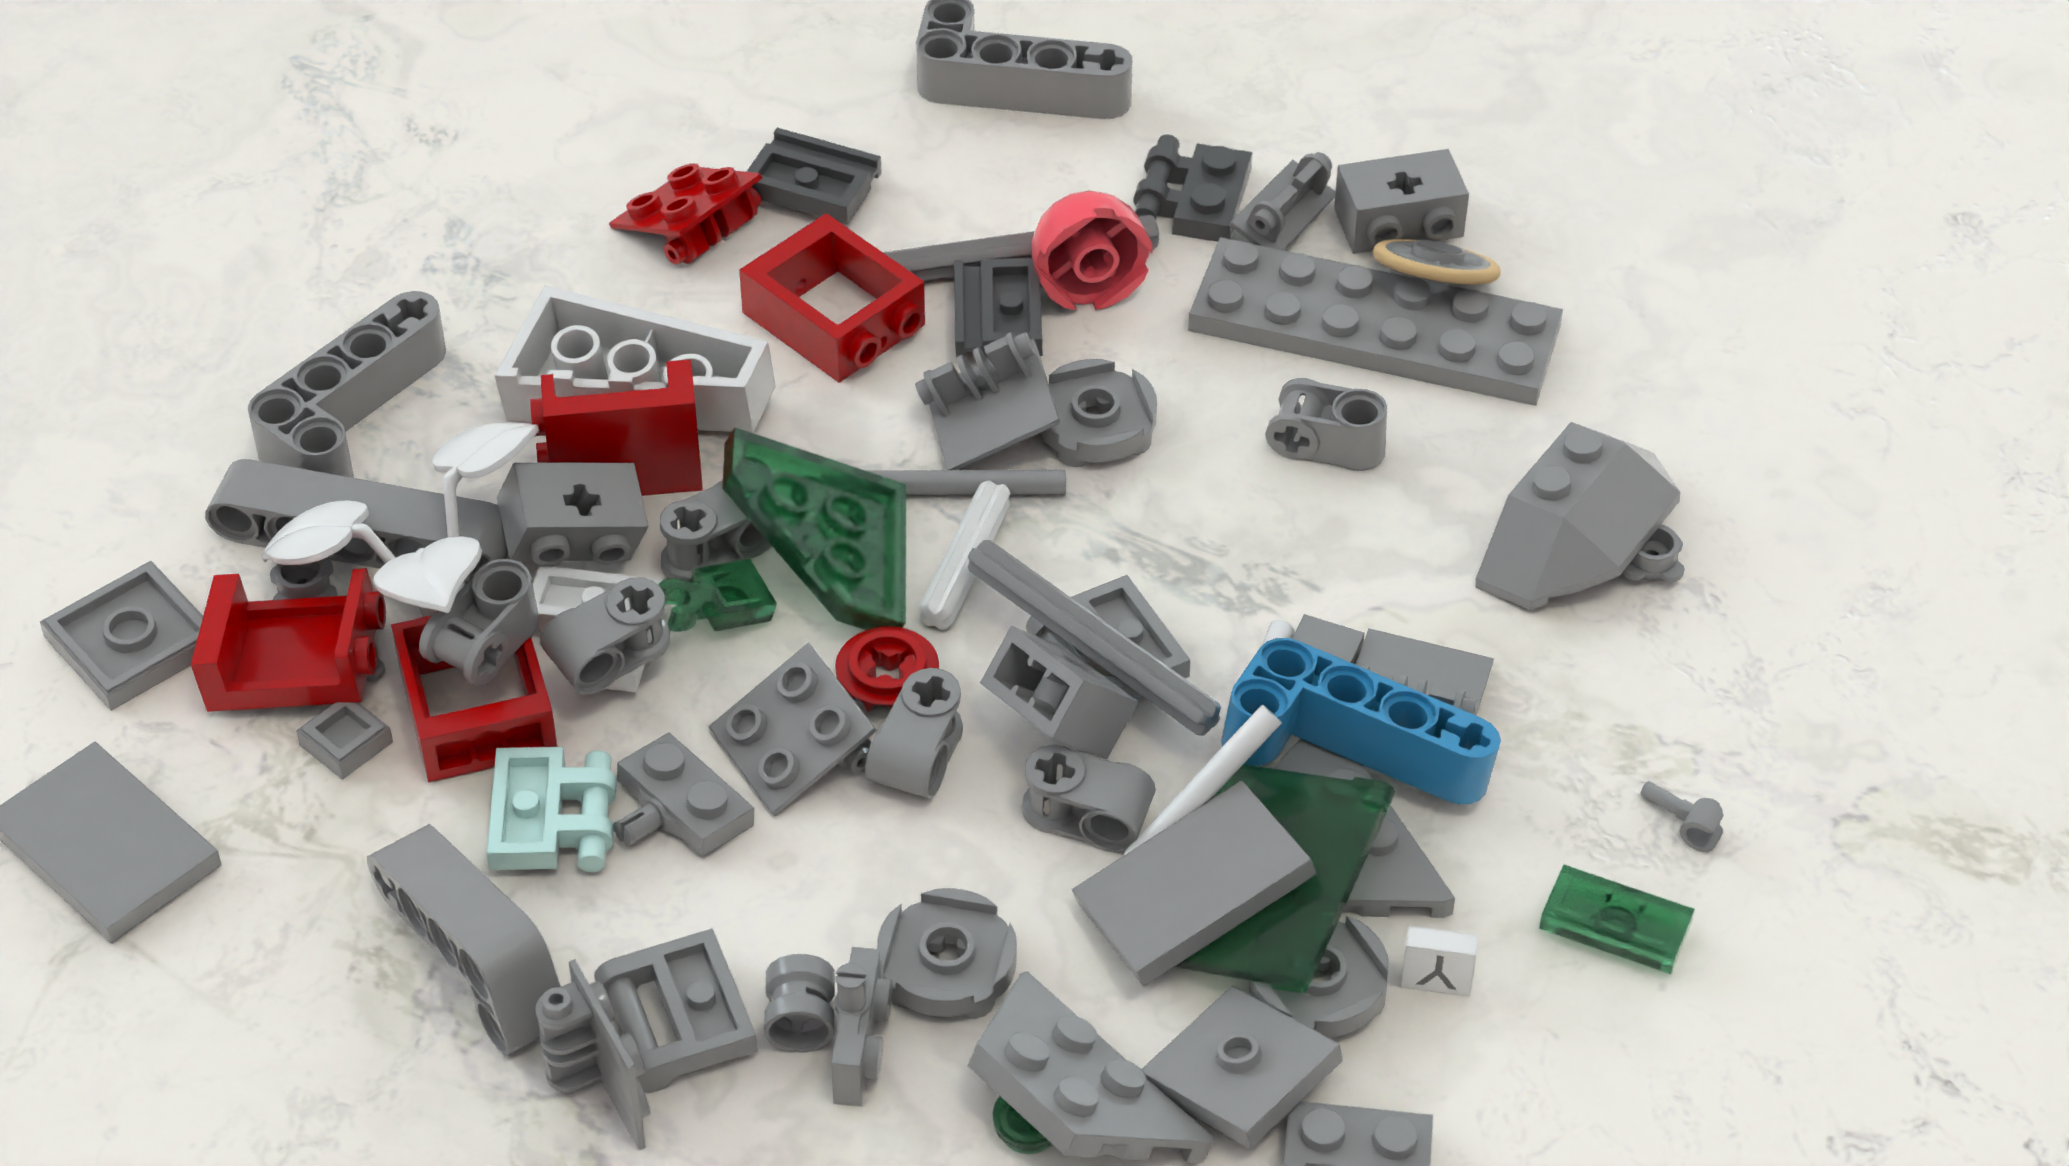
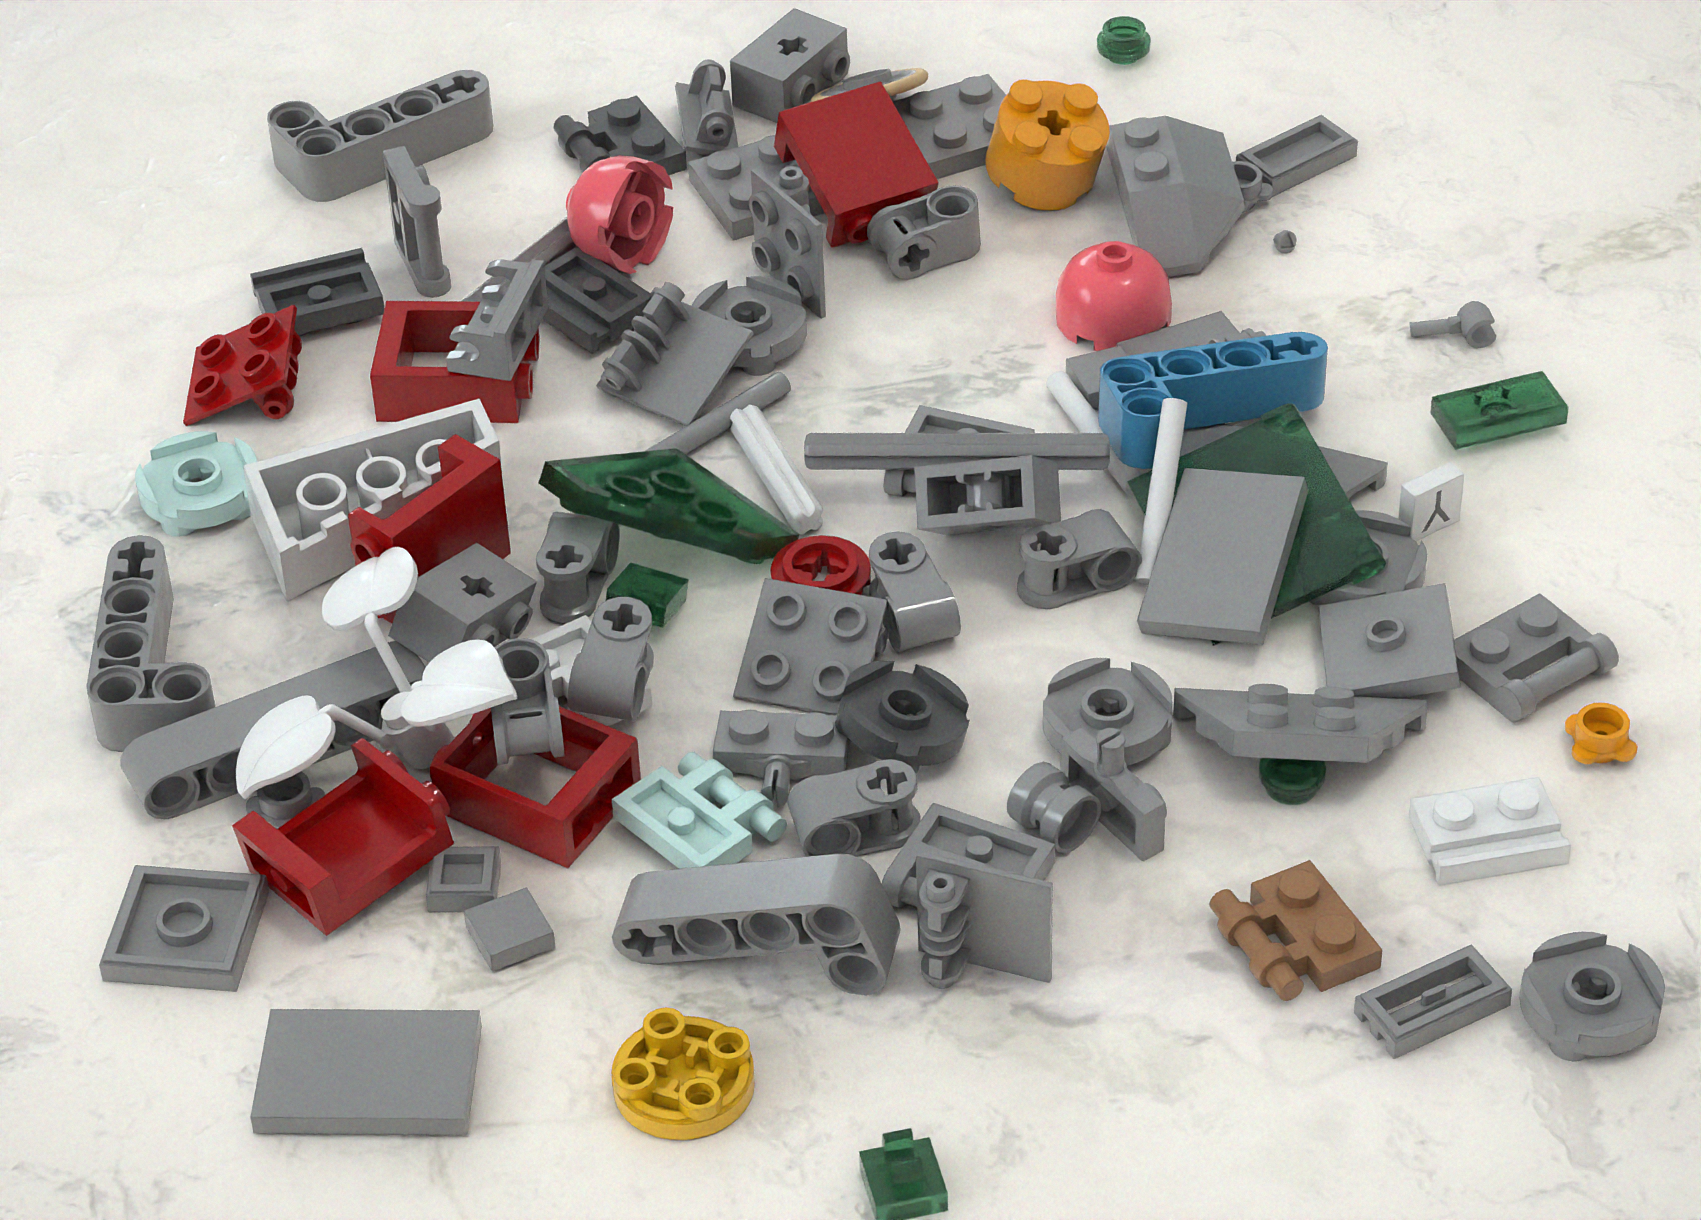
camera: 40 degrees left, 5 degrees down
(290, 1014) = (683, 1076): none -> yellow tile
(322, 801) = (509, 929): none -> light grey tile
(520, 270) = (186, 505): none -> light aqua plate
(651, 891) = (852, 813): none -> light grey piece
(776, 870) = (877, 709): none -> dark grey plate
(869, 290) = (502, 323): none -> light grey hinge
(929, 156) = (415, 223): none -> light grey plate
(1202, 348) = (787, 235): none -> light grey hinge
(1328, 316) = (854, 158): none -> red panel
(1412, 583) = (1112, 295): none -> coral cylinder
(1509, 403) = (1047, 143): none -> light orange brick
(1636, 631) = (1285, 241): none -> light grey piece
(1722, 350) = (1123, 40): none -> clear green plate
(1749, 556) = (1301, 153): none -> light grey tile

